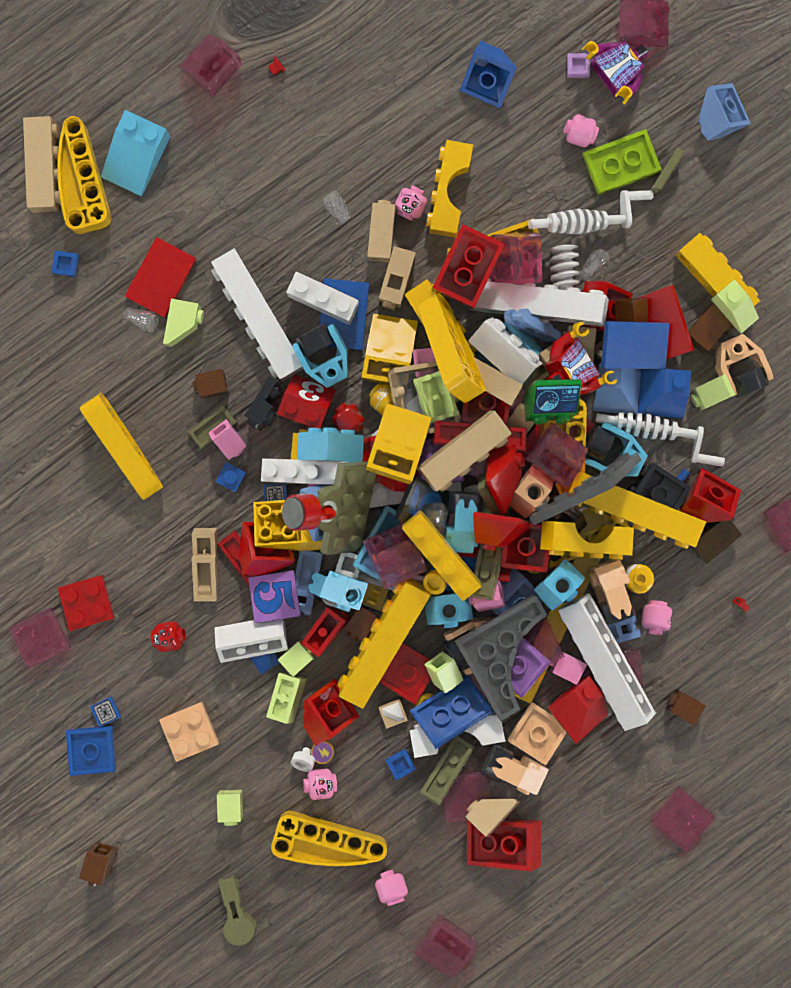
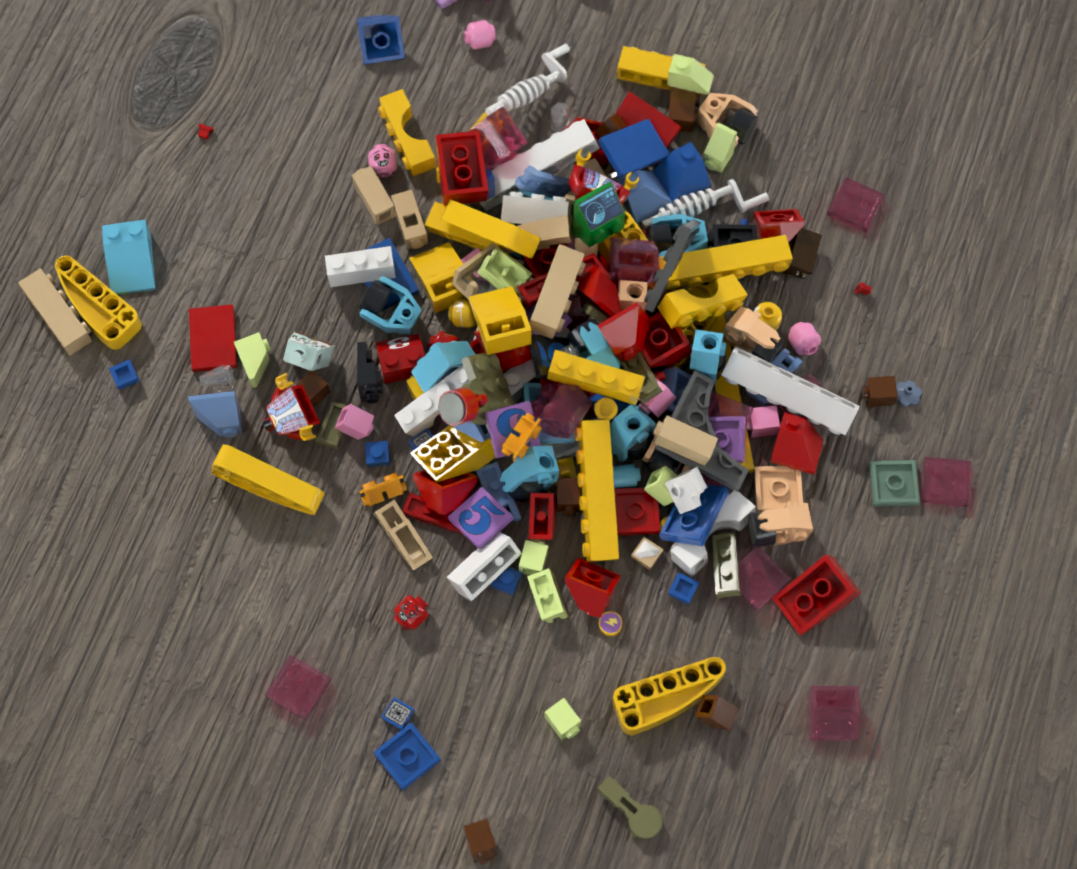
camera: 35 degrees left, 20 degrees down
(86, 603) = (319, 634): red plate -> none
(120, 359) = (219, 412): none -> medium blue slope
(179, 400) = (291, 411): none -> torso
(189, 731) = (483, 682): light nougat plate -> none
(204, 509) = (374, 491): none -> light orange hinge
(211, 64) = (151, 156): clear pink slope -> none
(227, 349) = (304, 352): none -> light aqua torso
(257, 315) = (313, 314): white brick -> none
(303, 760) = (599, 639): white tile -> none
(320, 784) = (627, 648): bright pink head -> none
(336, 206) = (322, 198): clear cone -> none
(342, 551) = (502, 423): none -> medium lavender tile
(352, 563) = (517, 445): none -> light orange hinge
(353, 885) = (716, 712): none -> reddish brown brick
(391, 888) = (751, 695): bright pink head -> none
(420, 637) = (626, 476): none -> medium azure brick
(456, 692) = (686, 489): none -> white brick
(480, 656) = (685, 440): none -> tan brick
(485, 295) = (491, 183): none -> blue tile
(489, 813) = (786, 569): tan slope -> none
(563, 266) = (534, 128): white piece -> none
(622, 162) = (527, 39): lime tile -> none
(638, 791) = (894, 483): none -> sand green tile
(667, 171) = (566, 22): olive tile -> none
(703, 723) = (908, 397): none -> sand blue plant

